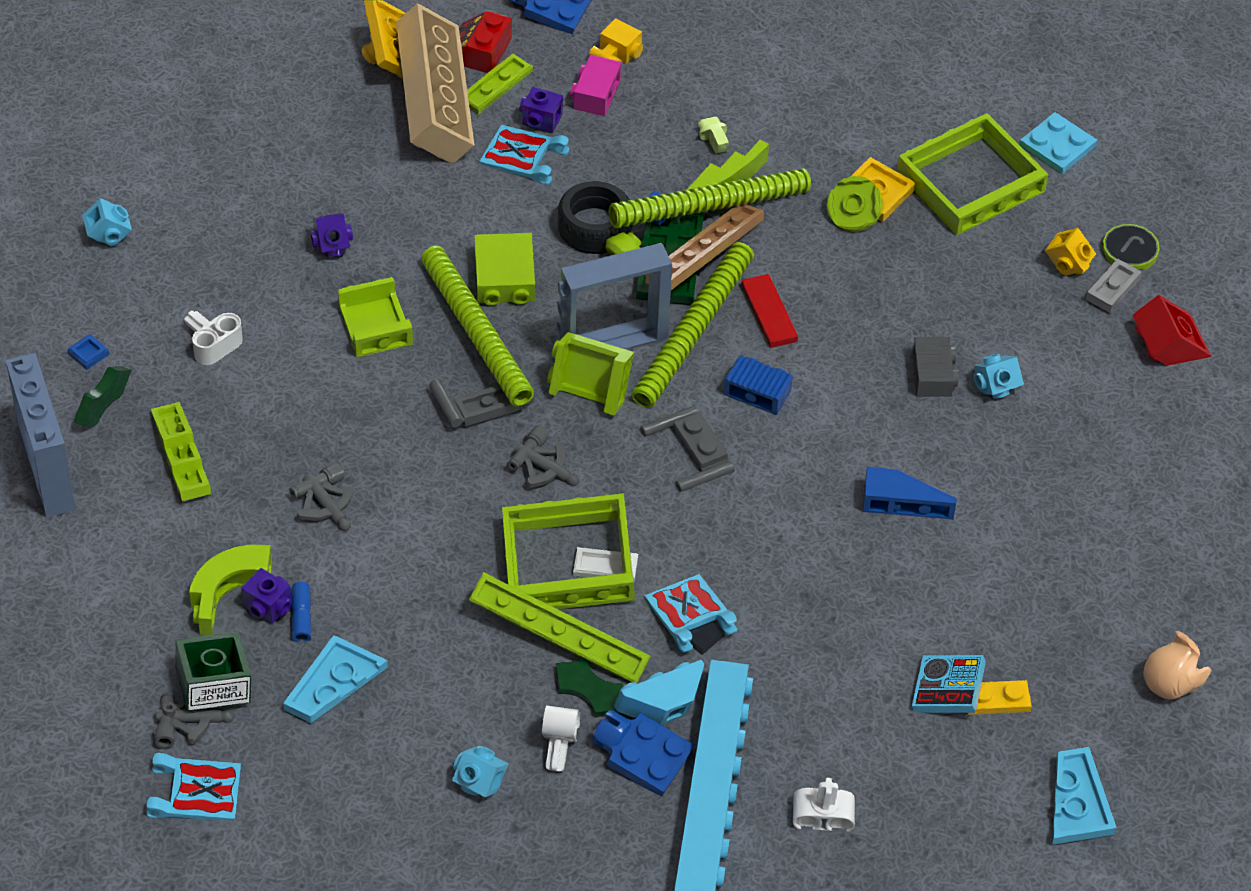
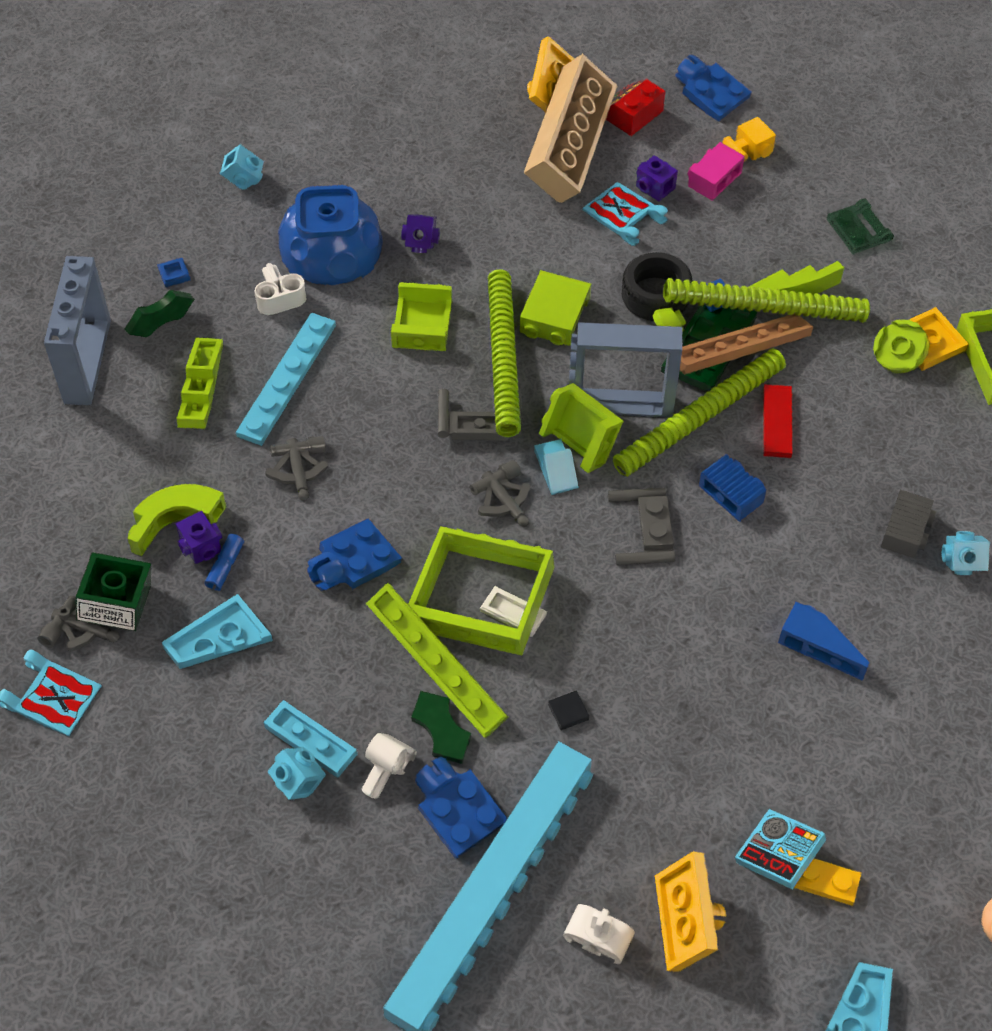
camera: 25 degrees right, 5 degrees up
(239, 264) = (329, 235): none -> blue rock
(266, 420) = (285, 379): none -> medium azure plate
(426, 565) = (352, 557): none -> blue plate
(460, 735) = (301, 731): none -> medium azure plate
(497, 82) = (630, 145): lime tile -> none
(581, 418) = (557, 466): none -> medium azure slope
(662, 695) = (500, 759): medium azure slope -> none
(687, 607) = (567, 678): medium azure flag -> none
(714, 131) = (803, 241): yellowish green piece -> none
(757, 106) = (854, 232): none -> clear green plate
(893, 761) = (687, 912): none -> yellow plate

